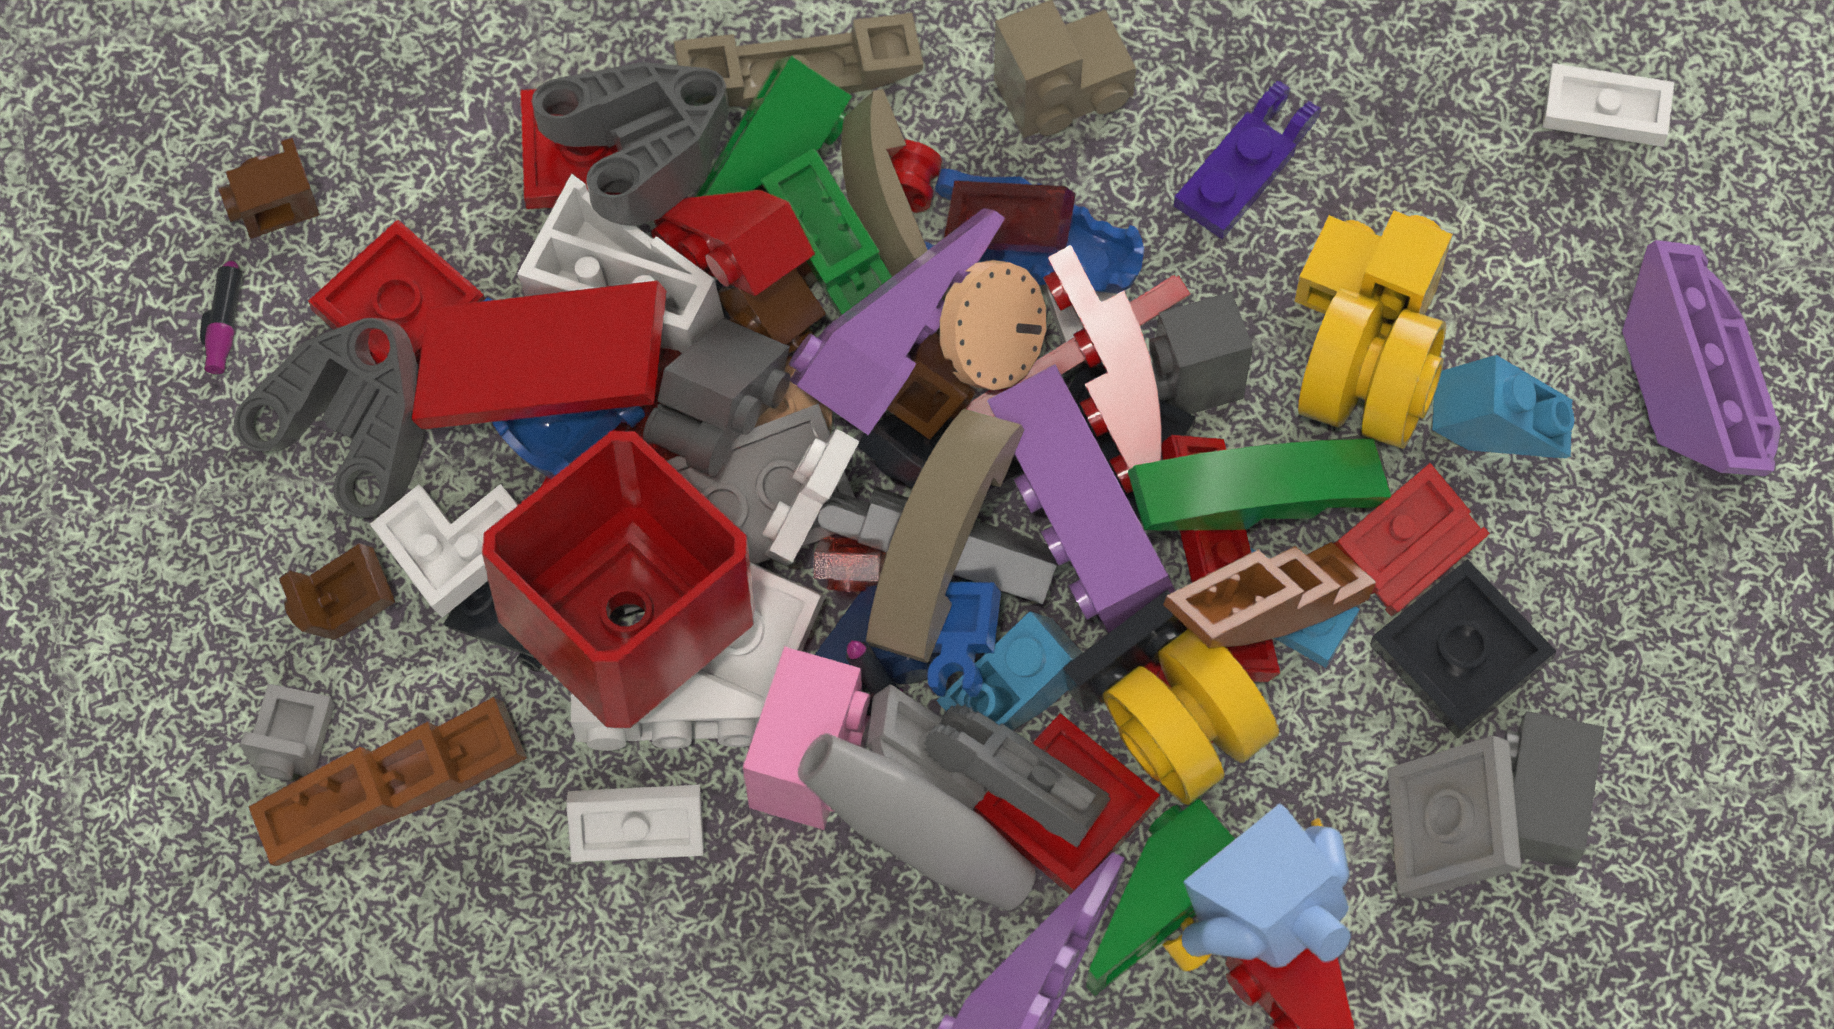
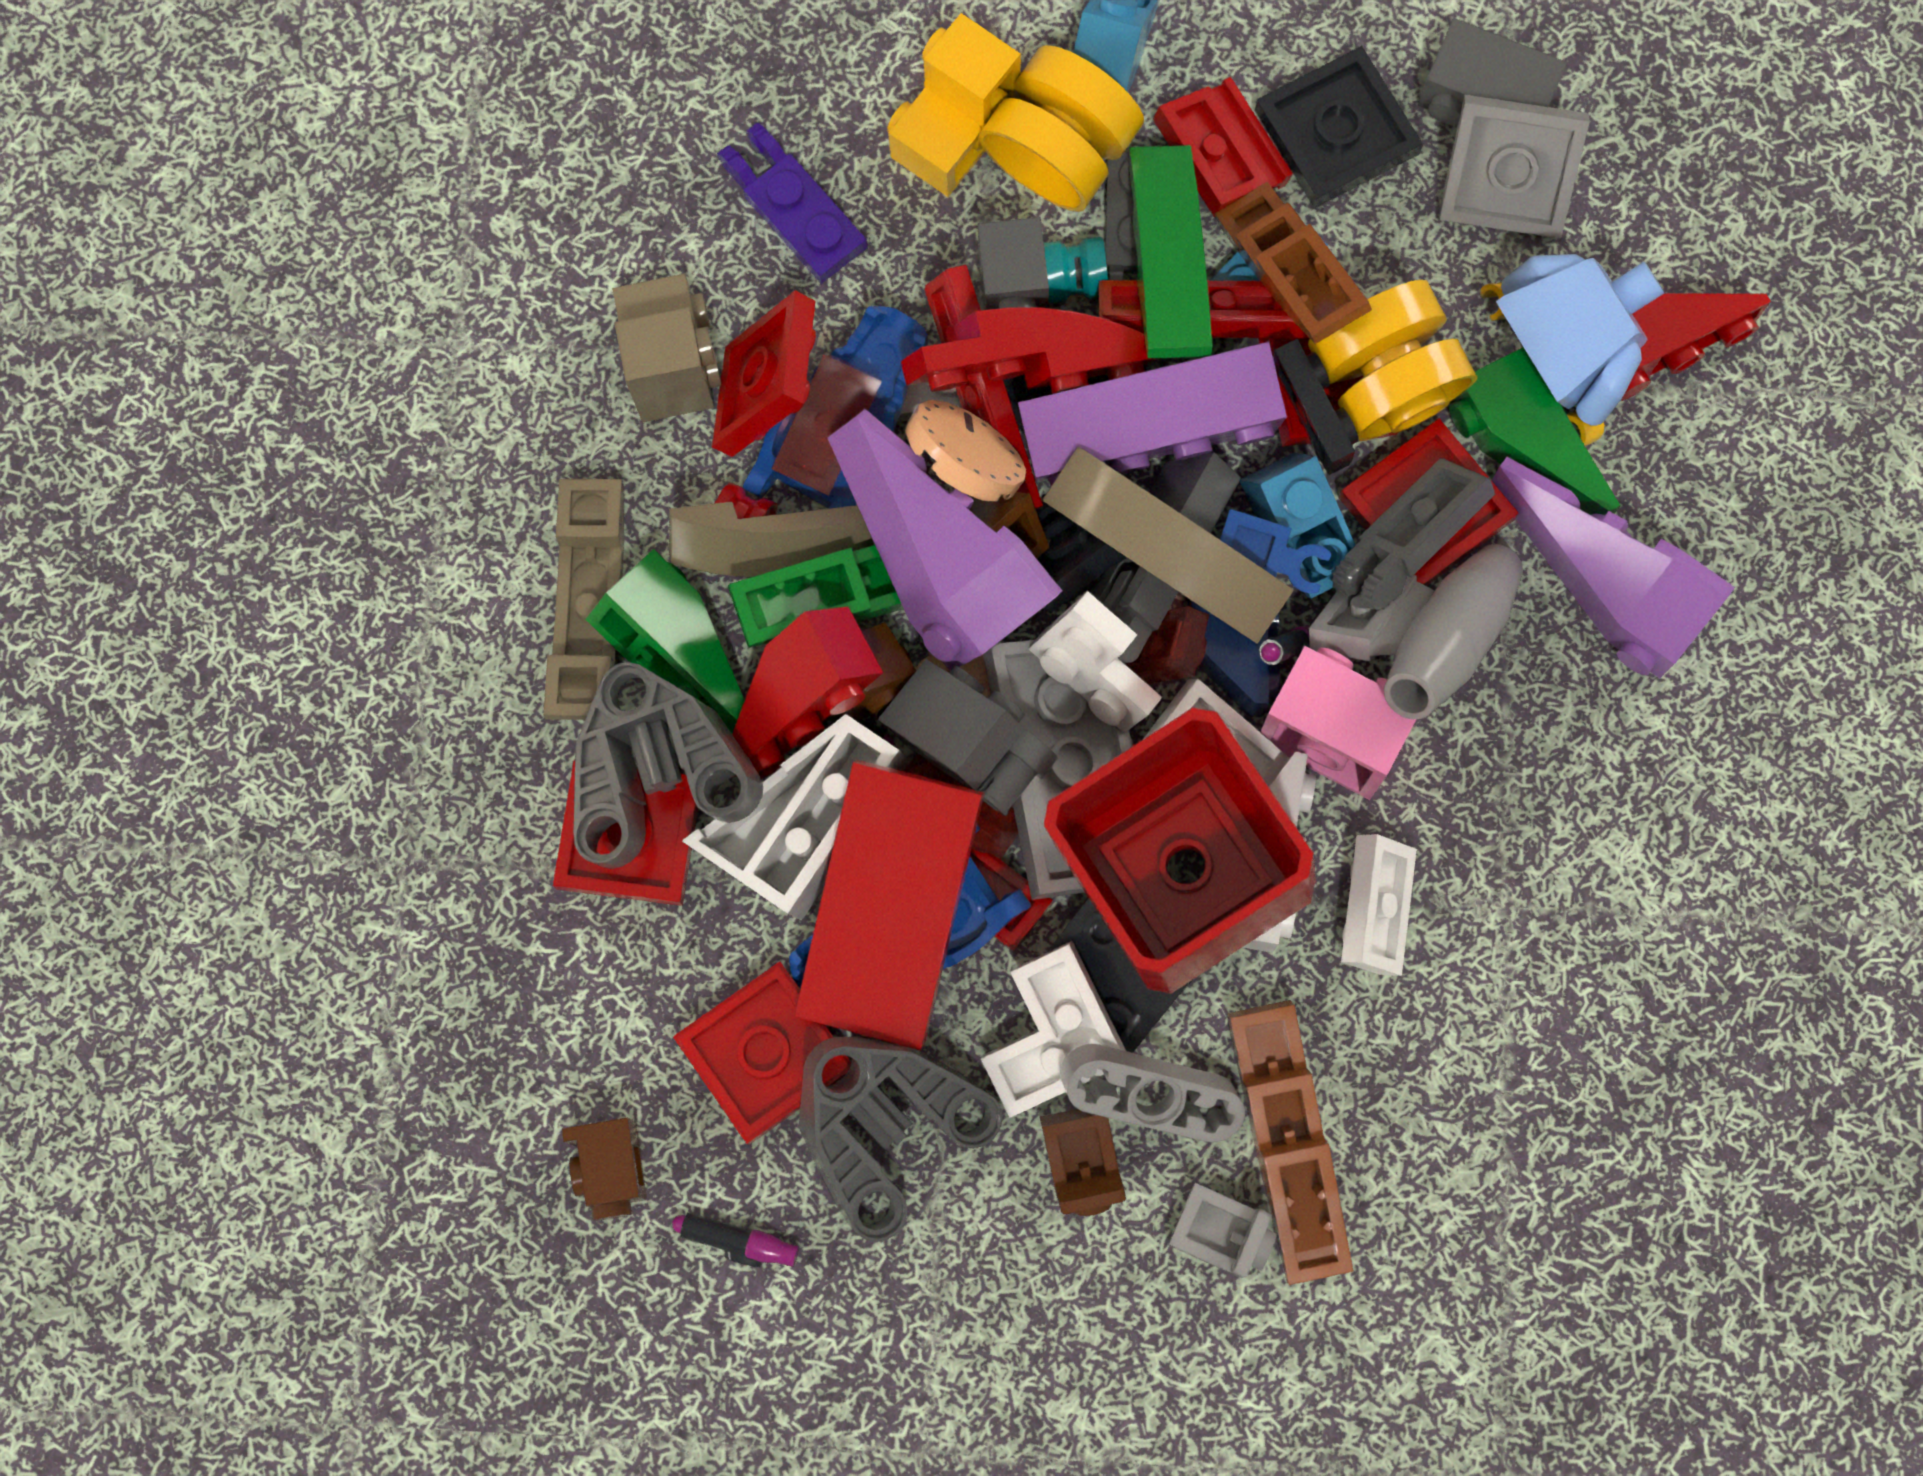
camera: 75 degrees left, 10 degrees up
(389, 658) = (1132, 1073): none -> light grey beam
(1032, 154) = (765, 374): none -> red plate
(1235, 414) = (1062, 270): none -> teal wheel

